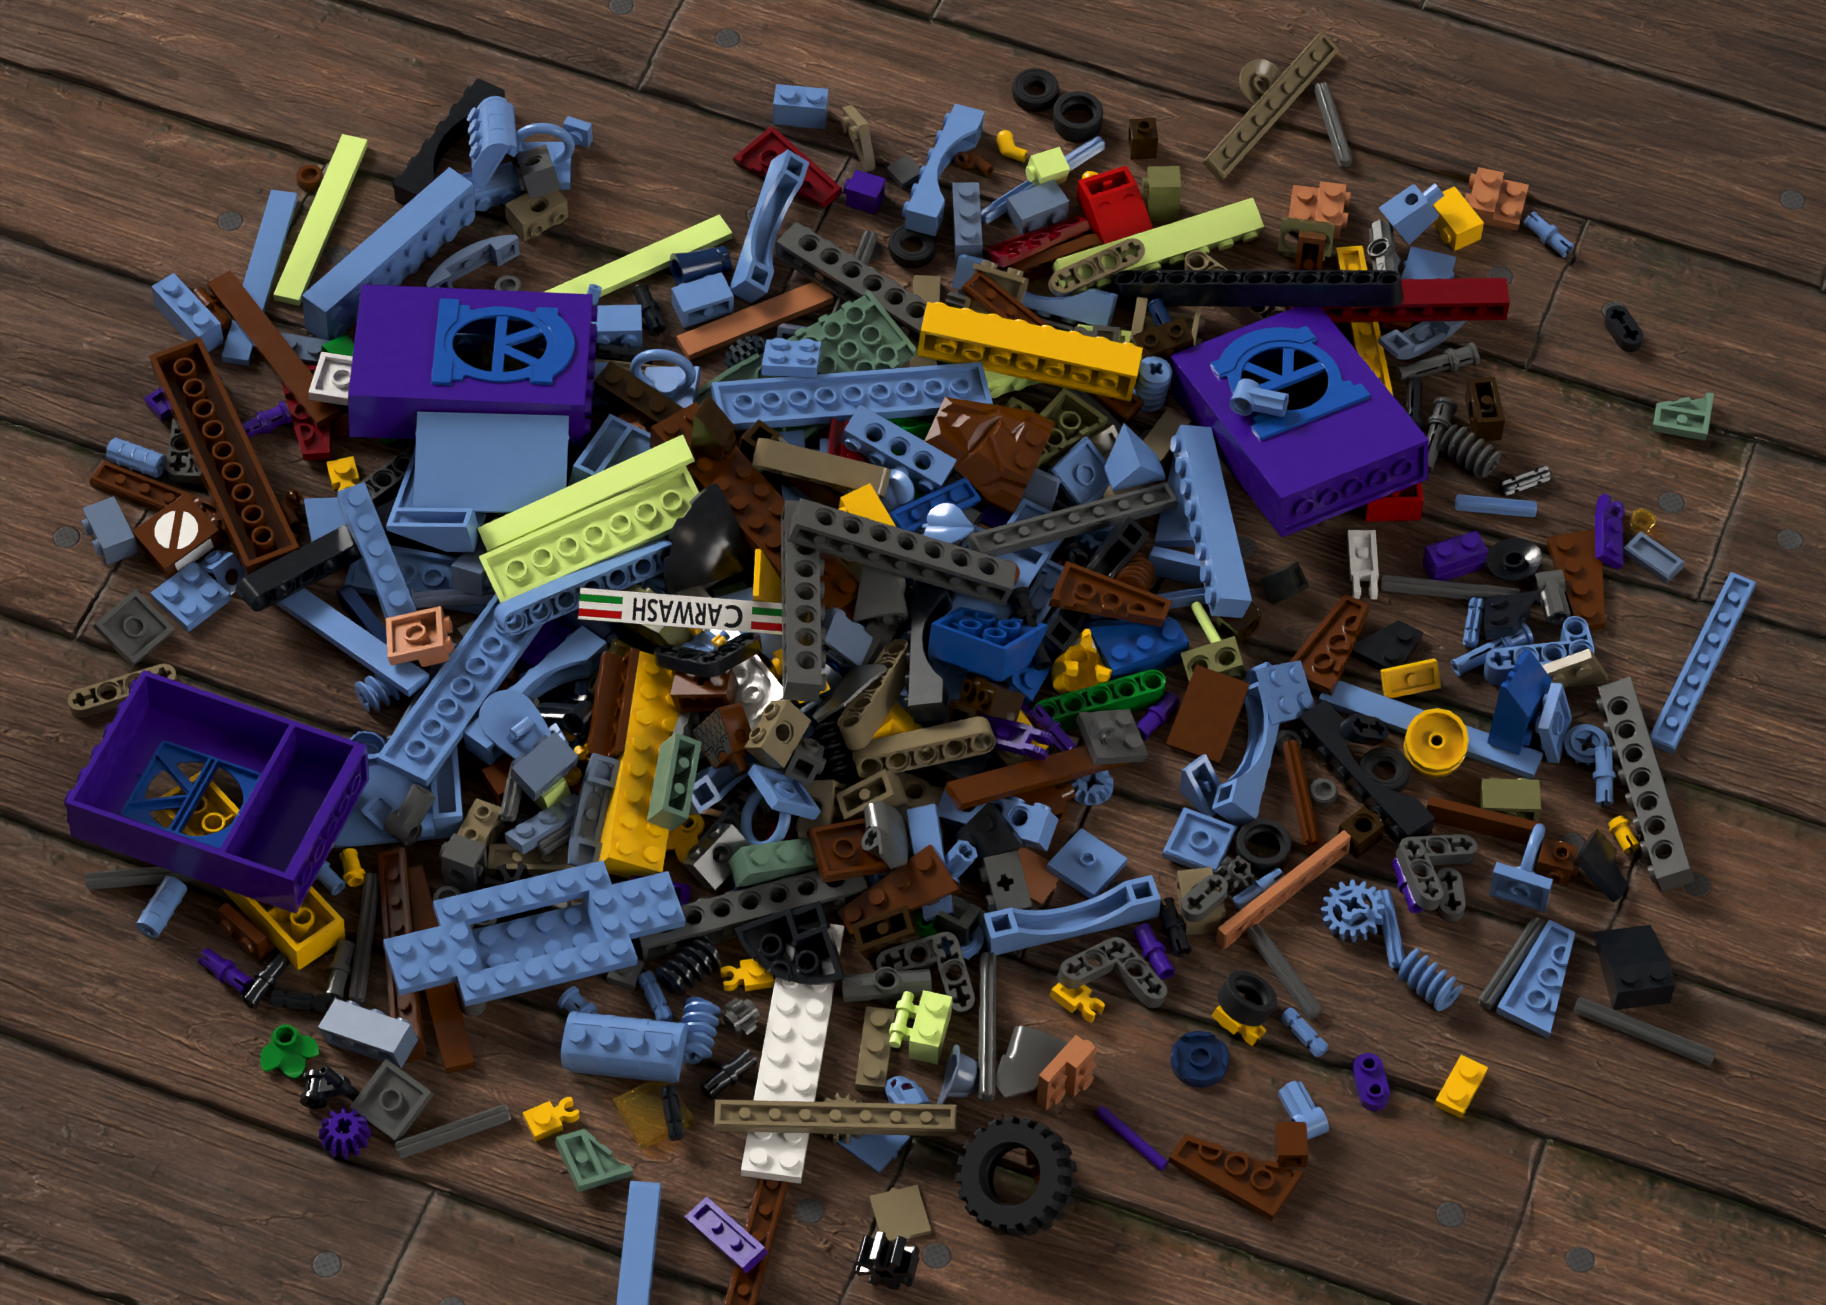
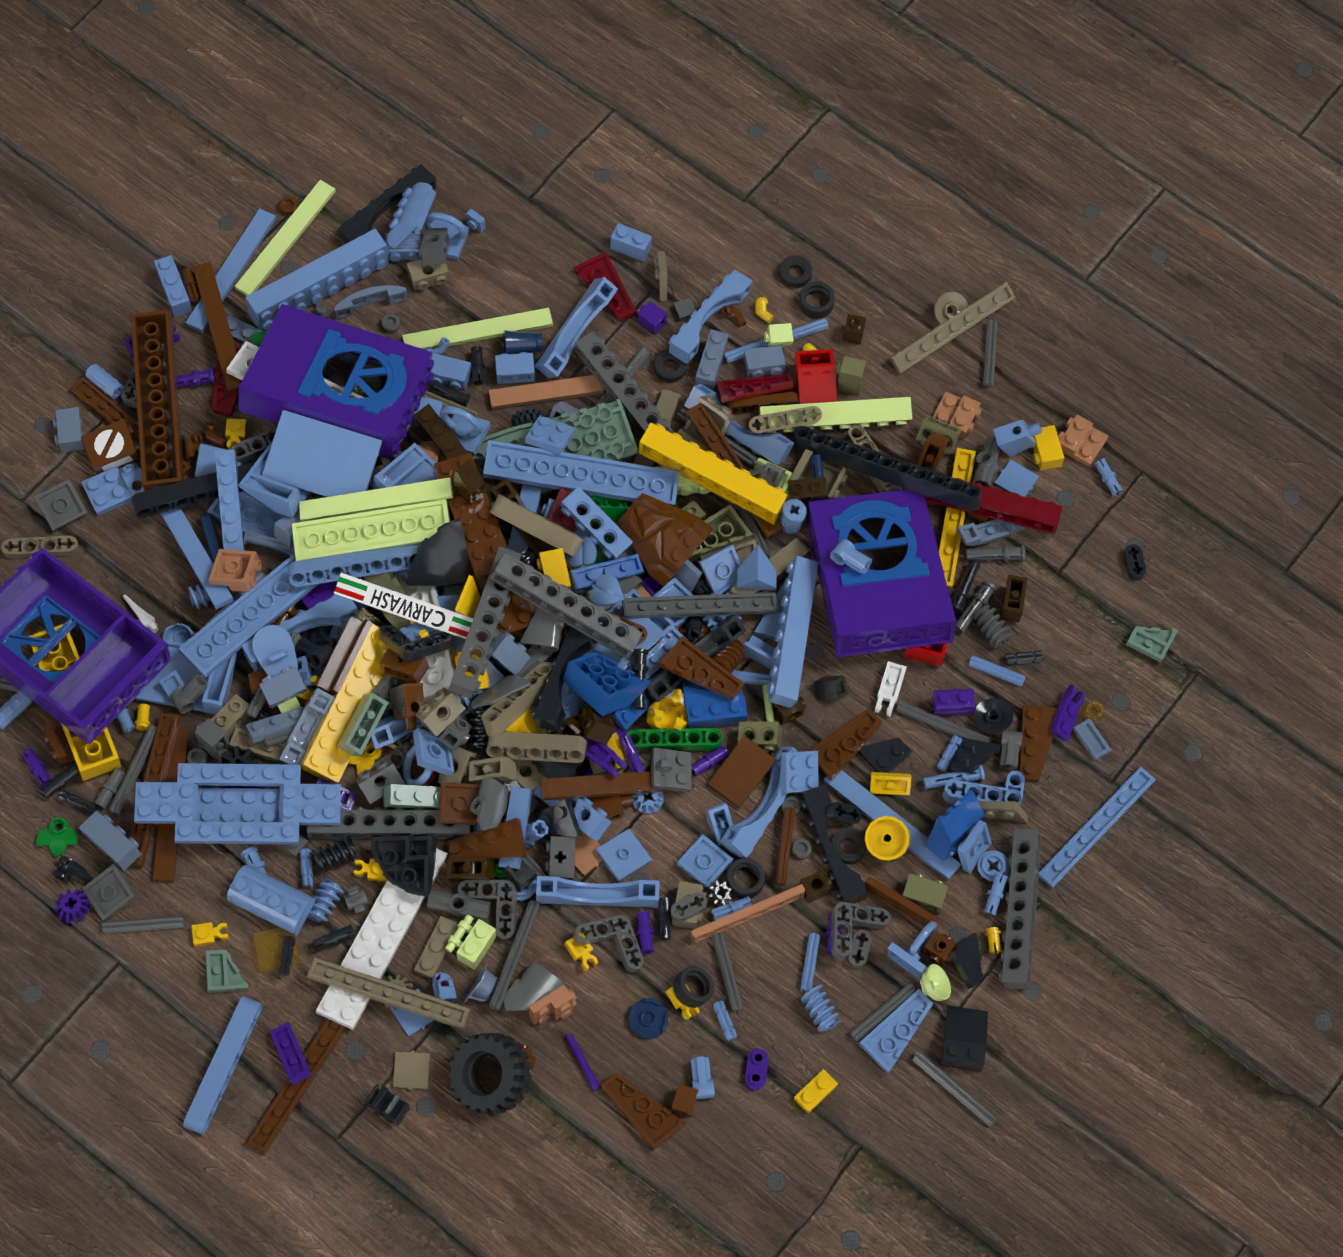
camera: 15 degrees right, 10 degrees up
(311, 488) = (211, 435): none -> reddish brown arm
(1351, 908) = (792, 936): medium blue gear -> none
(1568, 906) = (935, 983): none -> yellowish green piece

